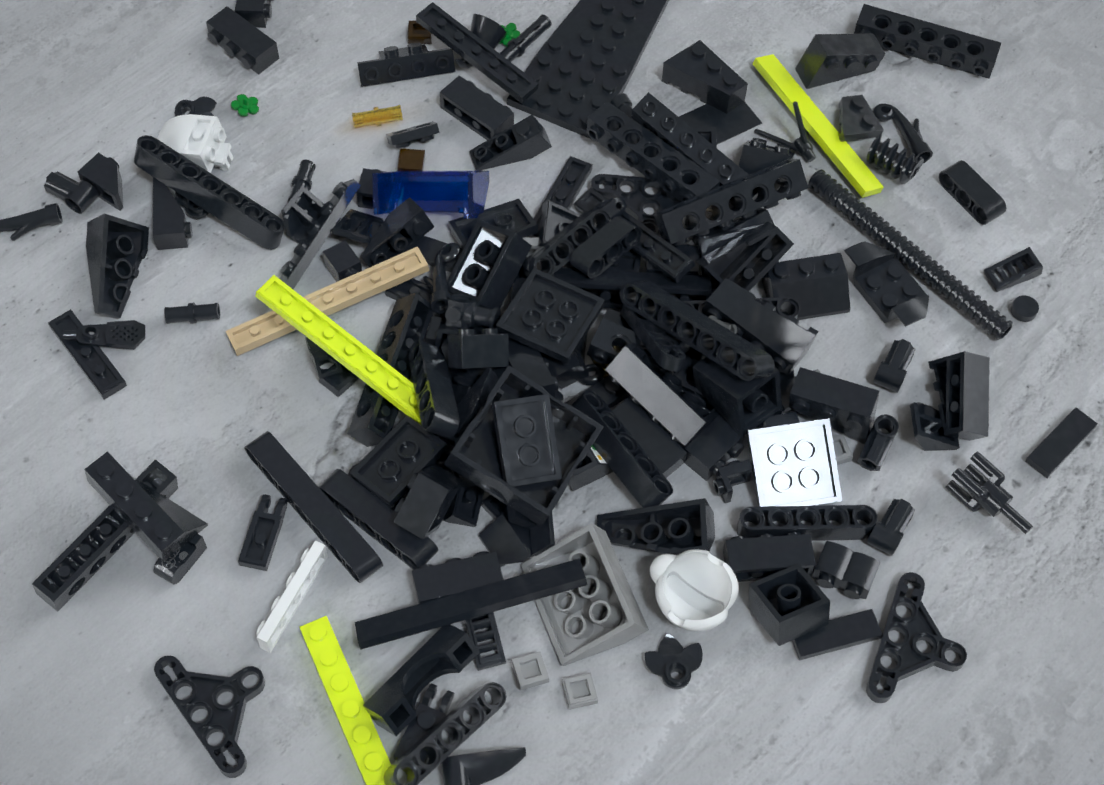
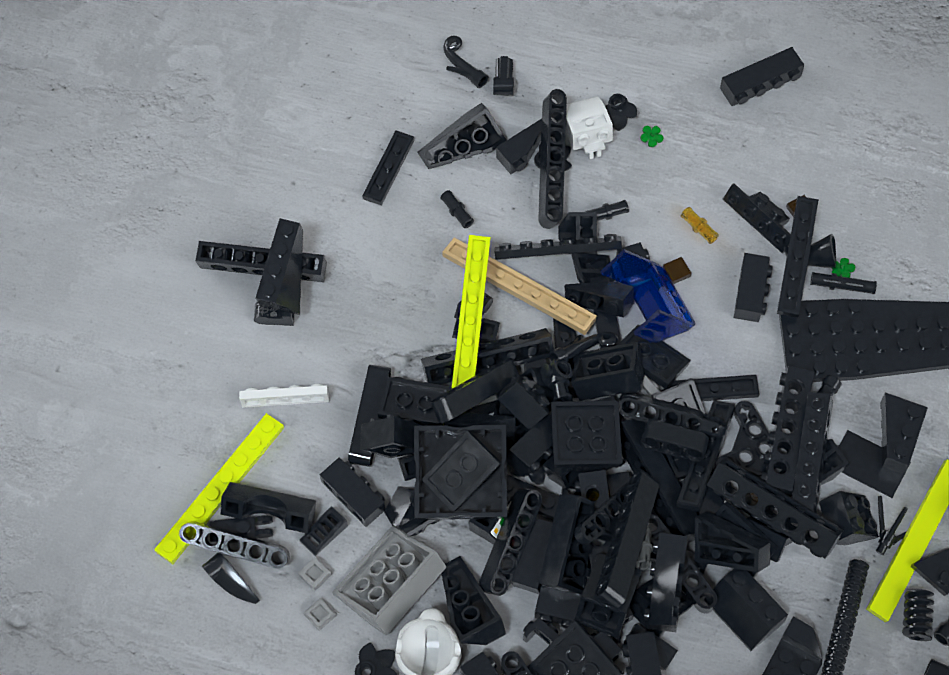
camera: 65 degrees right, 5 degrees up
(105, 177) = (526, 91): black slope -> none
(113, 334) = (411, 168): black piece -> none
(220, 718) = (180, 404): black beam -> none
(242, 40) = (702, 98): black brick -> none
(262, 535) = (320, 352): black hinge -> none
(314, 507) = (355, 370): black beam -> none
(341, 261) = (556, 276): black brick -> none
(422, 132) = (694, 253): black plate -> none
(470, 603) = (337, 509): black tile -> none
(512, 145) = (738, 330): black slope -> none

